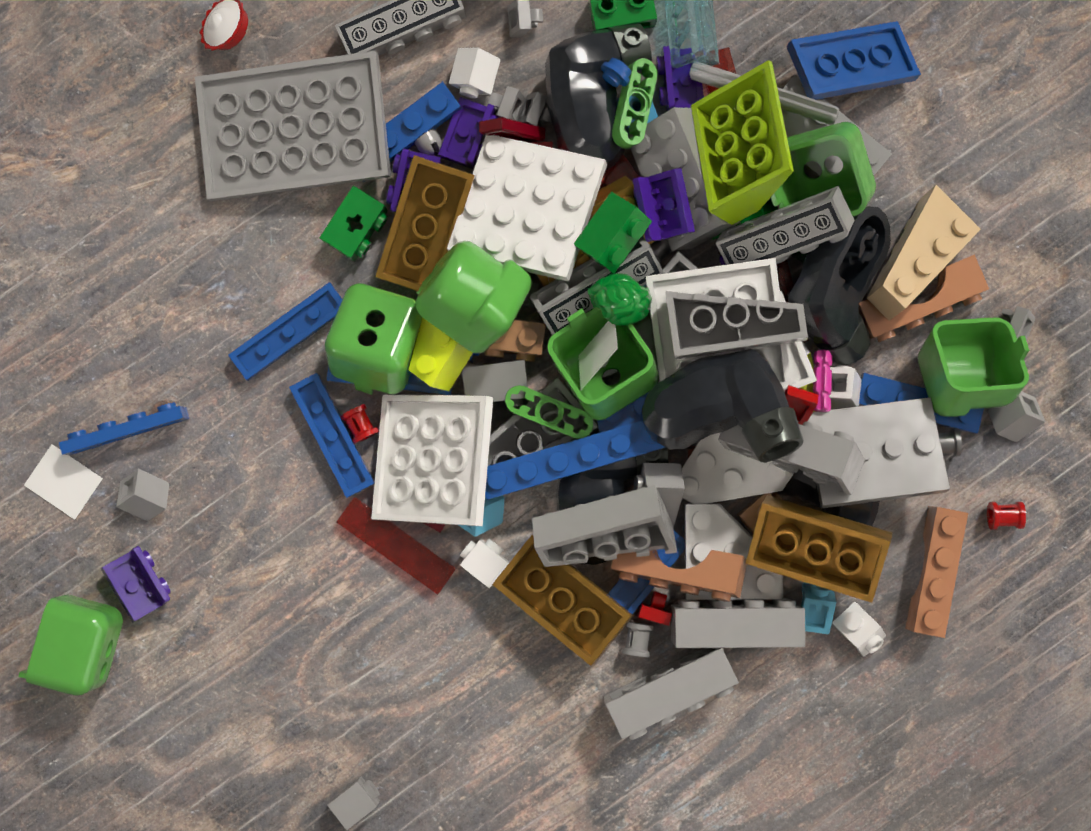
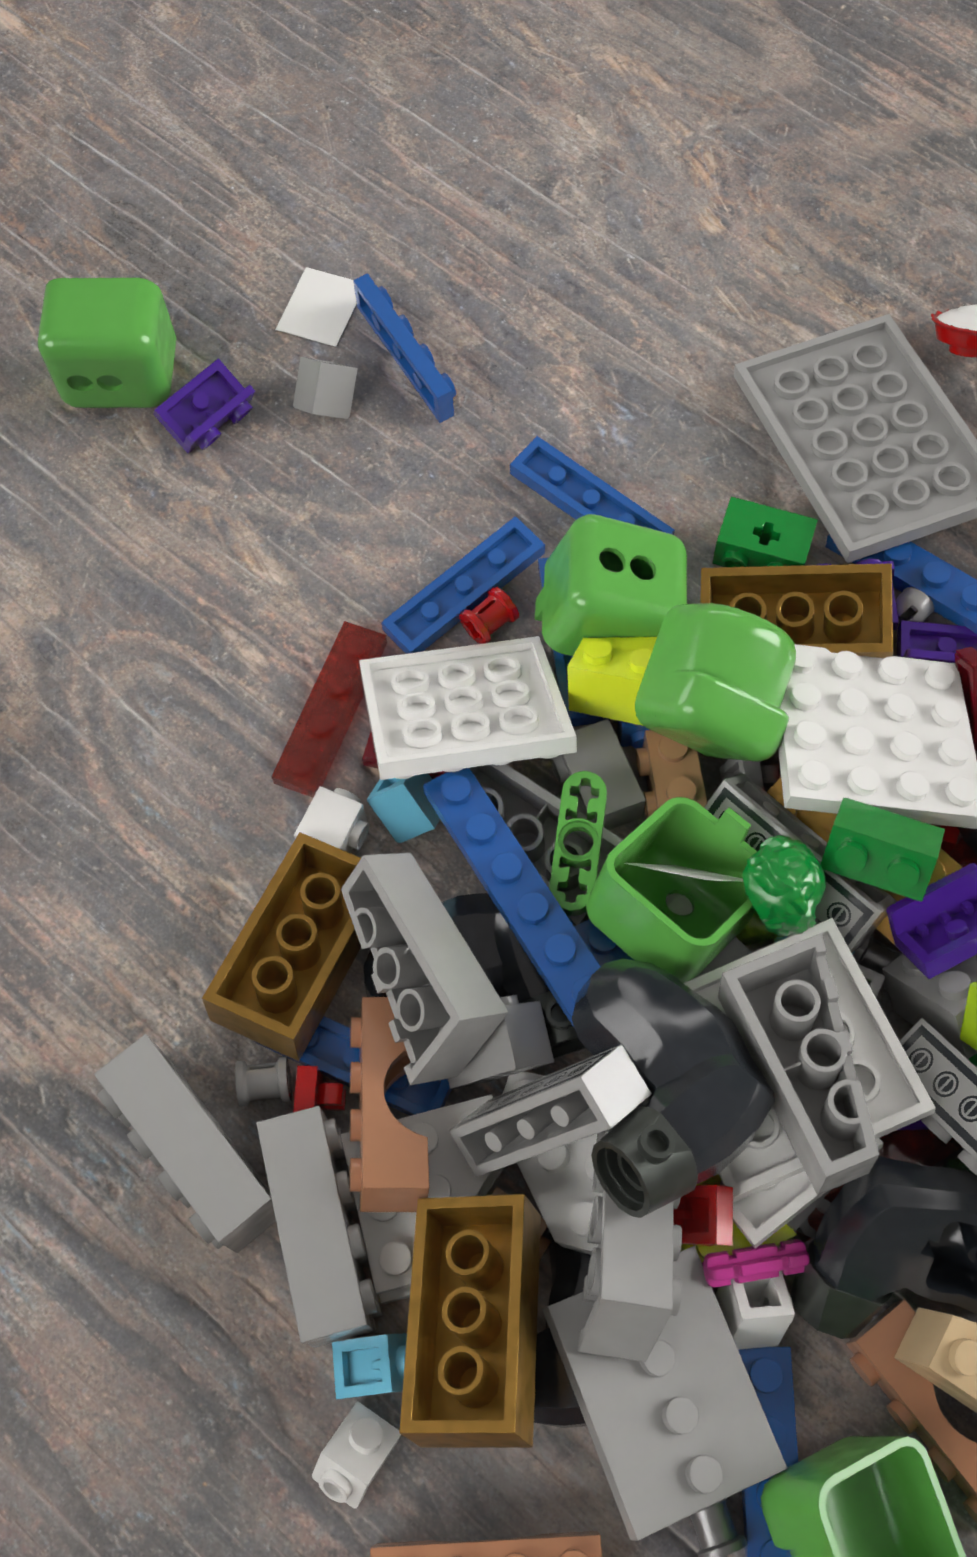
camera: 75 degrees right, 20 degrees down
(722, 476) = (551, 1111): none -> light grey brick

